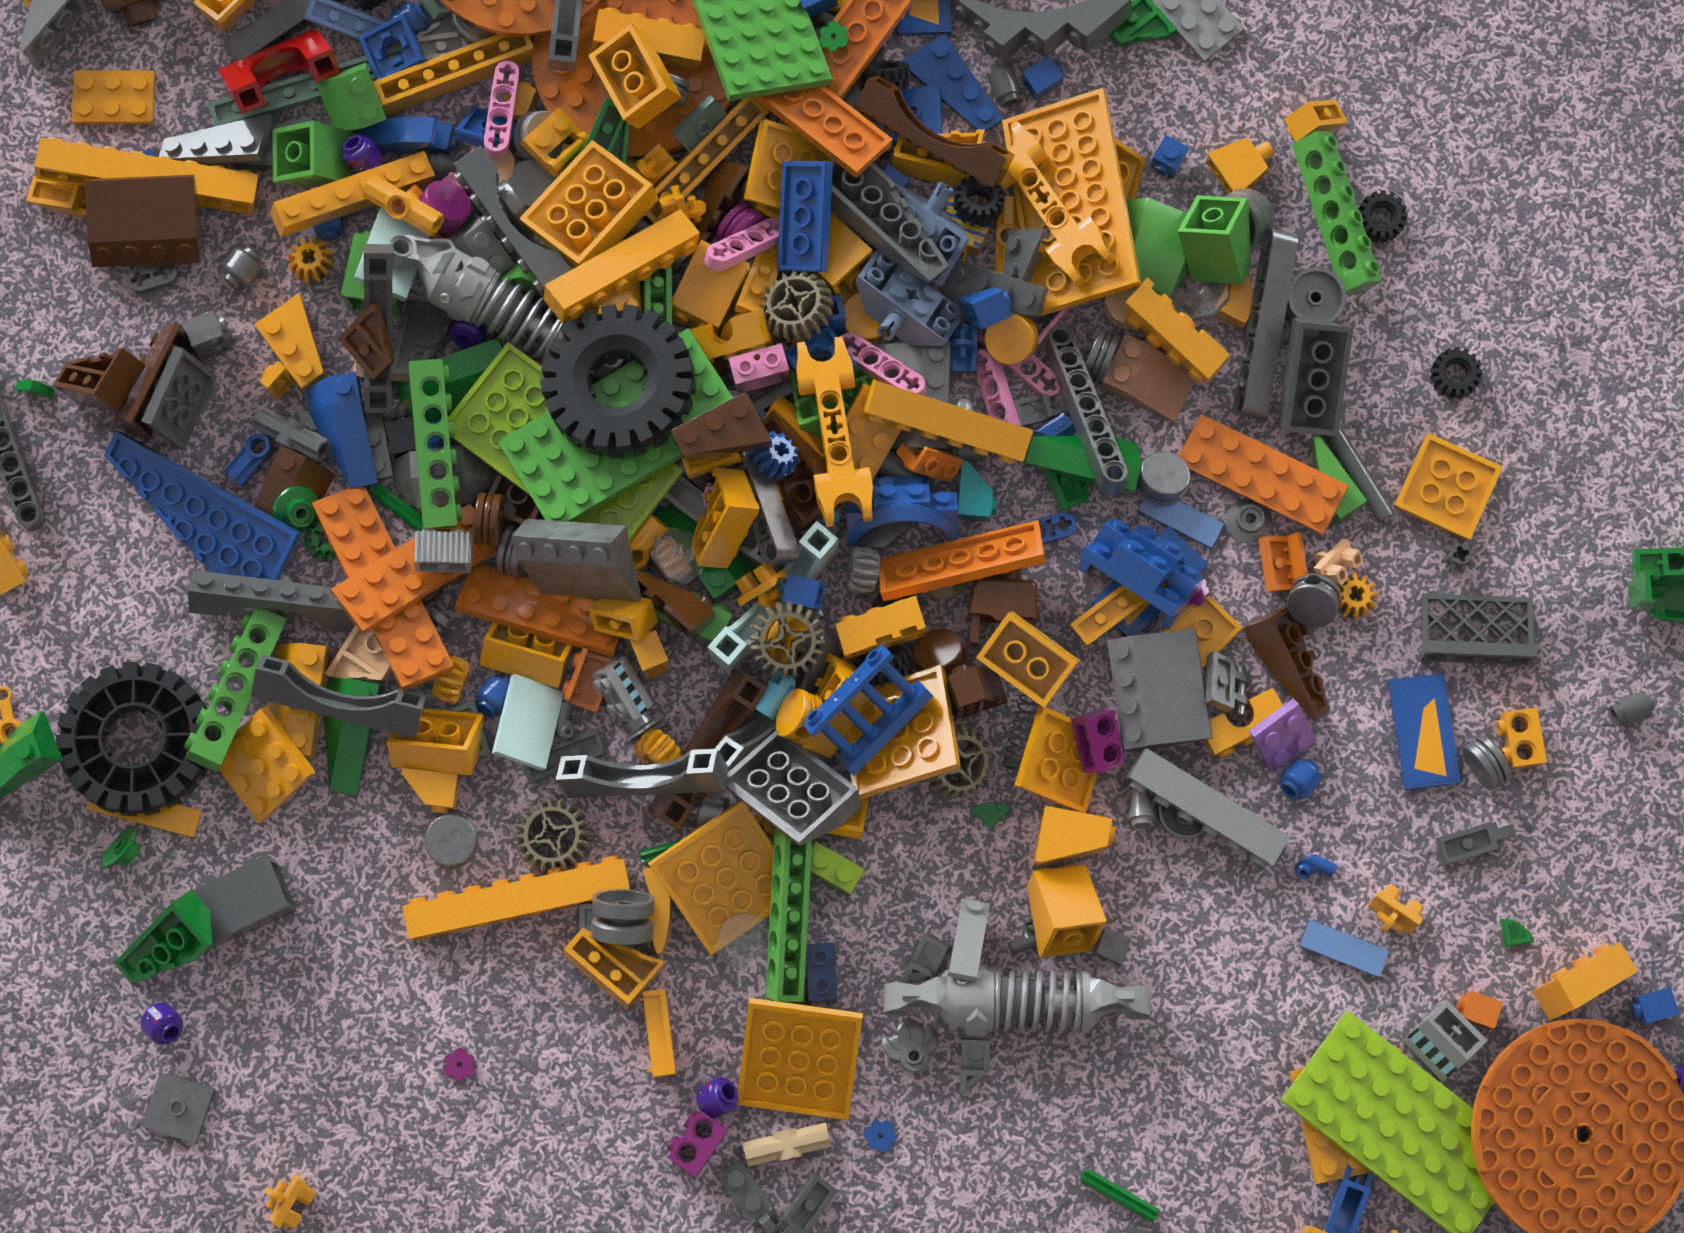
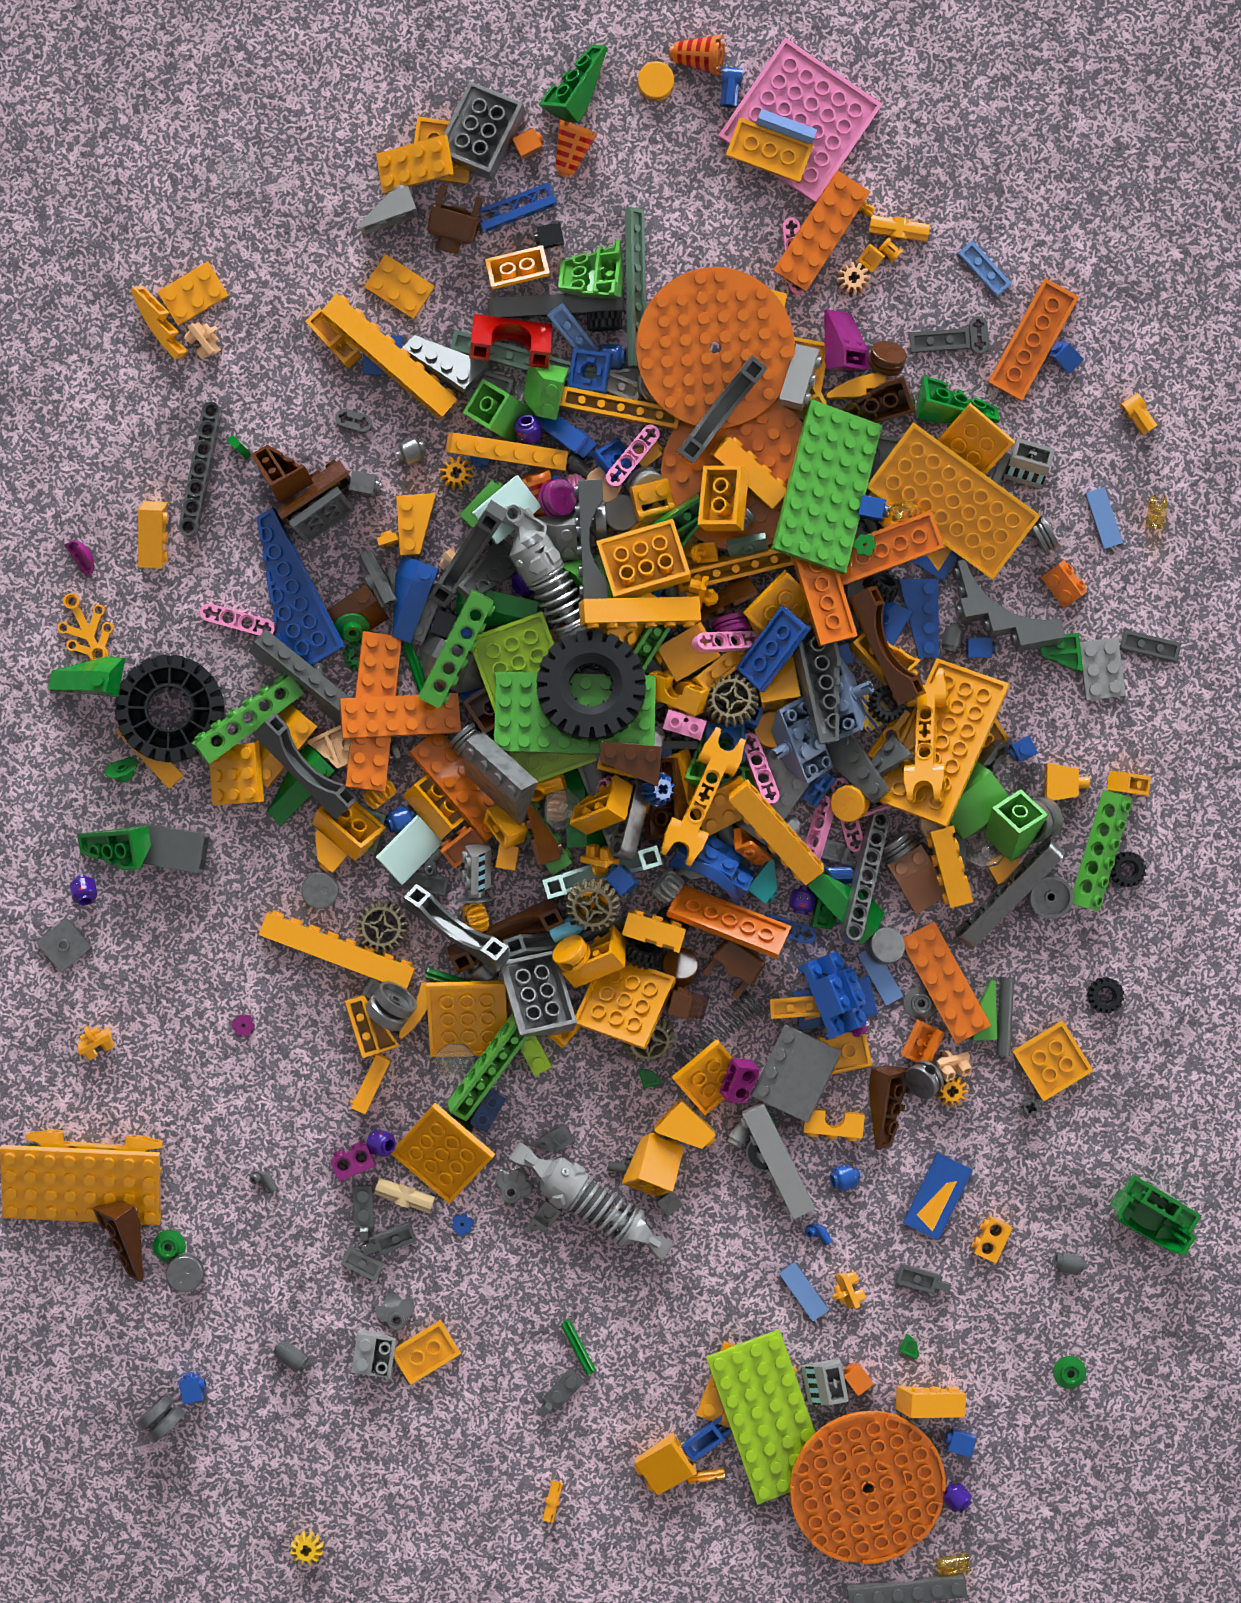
camera: 35 degrees right, 10 degrees up
(143, 221) = (368, 386): reddish brown slope -> none
(154, 583) = (238, 618): none -> bright pink beam
(248, 462) = (341, 577): blue piece -> none
(369, 342) = (457, 559): reddish brown wing -> none
(415, 213) = (526, 475): light orange piece -> none
(443, 551) = (421, 718): light grey brick -> none
(488, 519) = (461, 715): reddish brown head -> none
(874, 735) = (615, 994): blue fence -> none
(968, 939) = (585, 1149): light grey slope -> none
(986, 307) = (845, 777): blue slope -> none
(1028, 659) = (728, 1009): light orange brick -> none
(1032, 487) = (802, 900): none -> dark purple head
(1138, 186) = (993, 757): none -> flat silver beam
(1226, 684) = (838, 1095): flat silver plate -> none
(1282, 735) = (851, 1147): medium lavender plate -> none
(1315, 377) = (1016, 946): dark grey slope -> none
(1483, 651) = (1001, 1170): dark grey fence -> none
(1487, 763) = (960, 1240): flat silver head -> none

